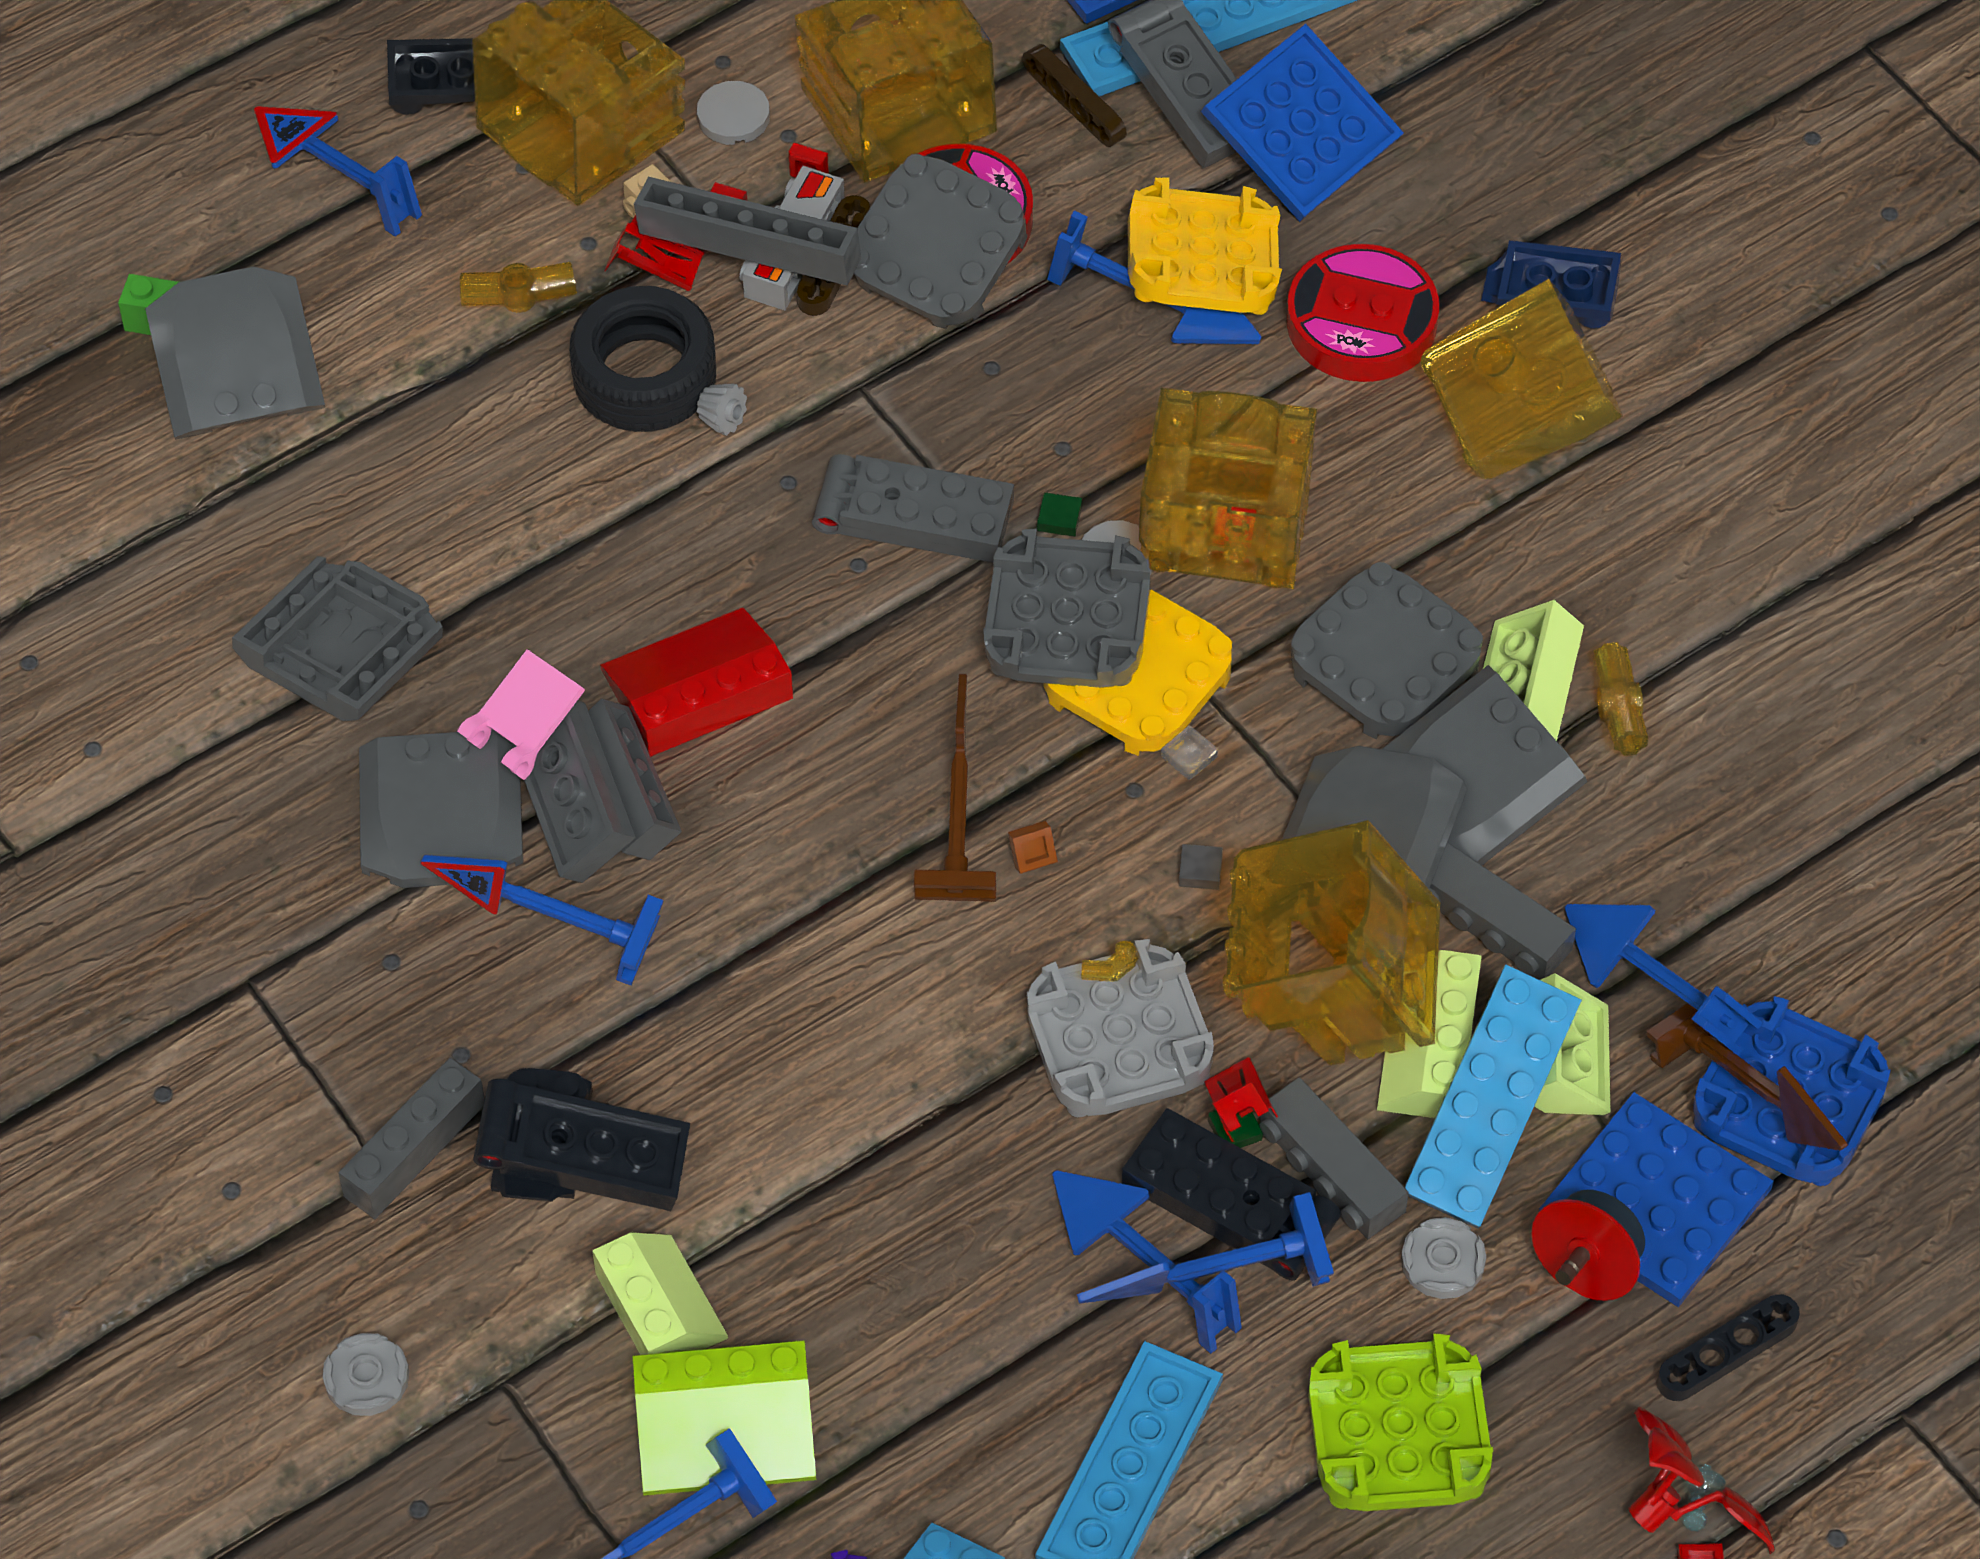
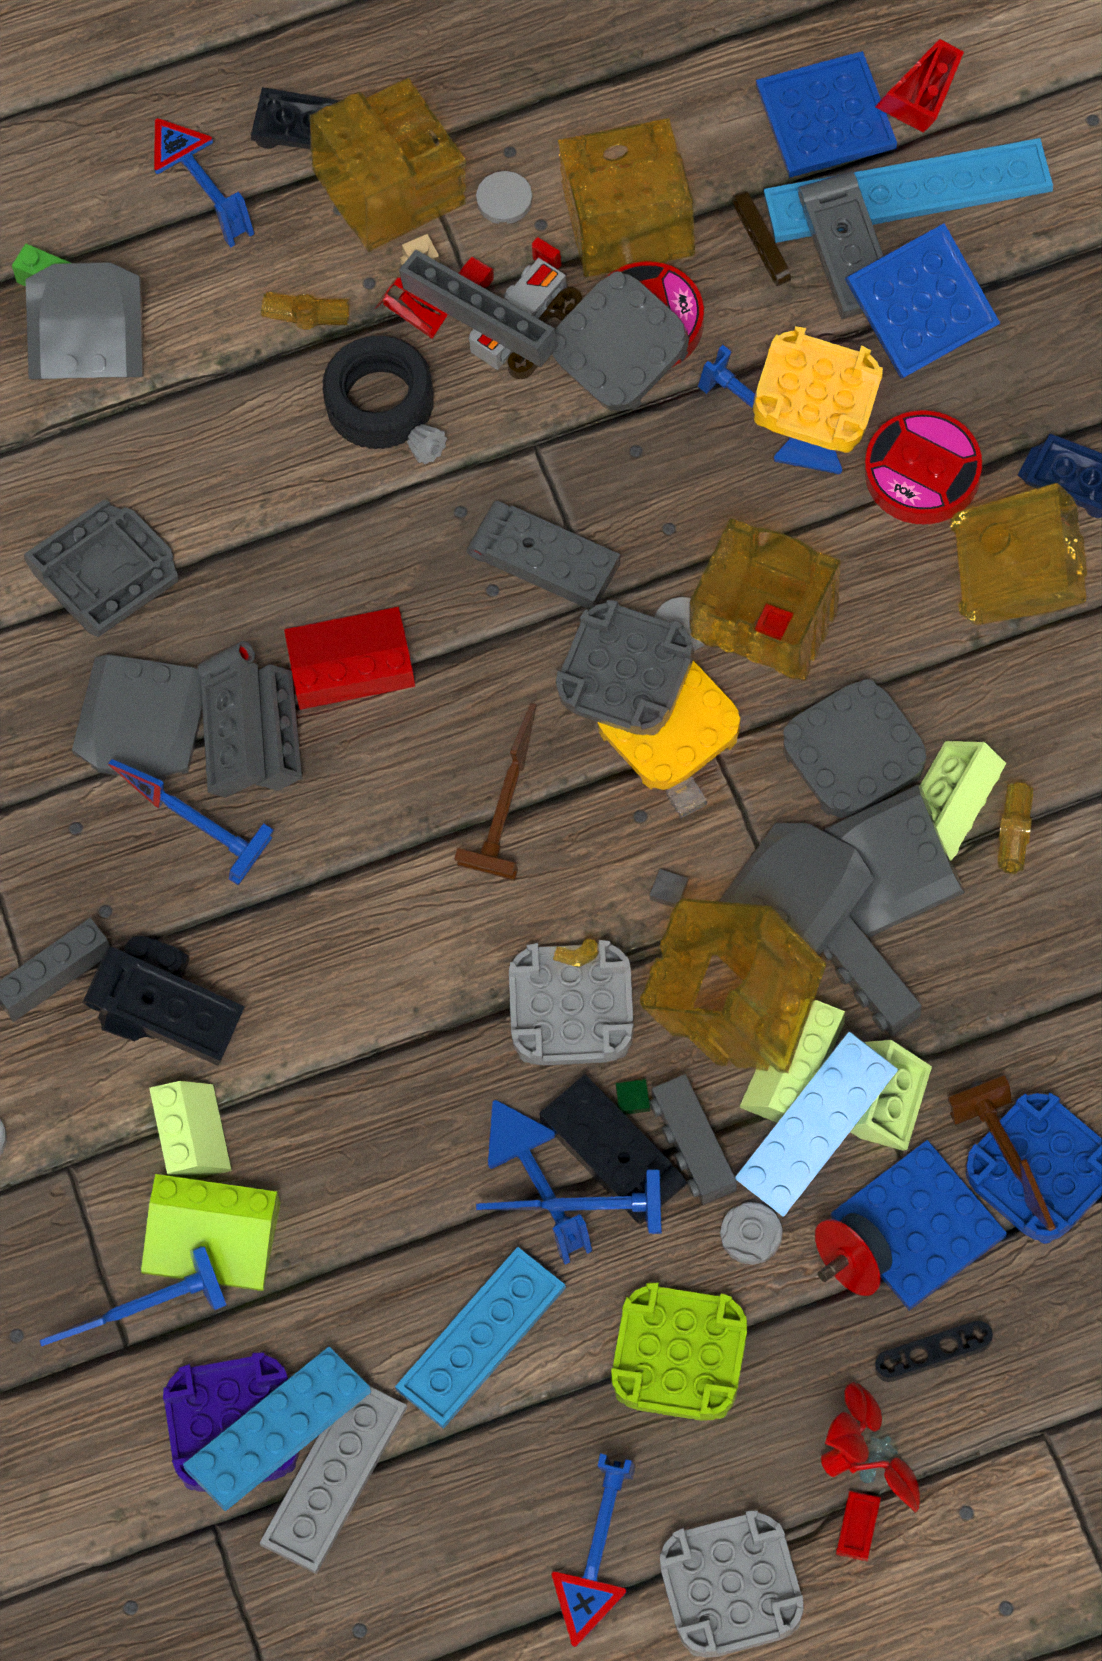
camera: 20 degrees right, 10 degrees up
(524, 711) = (210, 663): bright pink flag -> none
(1032, 847) = (550, 846): dark orange tile -> none
(1059, 514) = (649, 583): dark green tile -> none
(1239, 1097) = (636, 1084): red piece -> none
(1608, 934) = (943, 1016): blue piece -> none

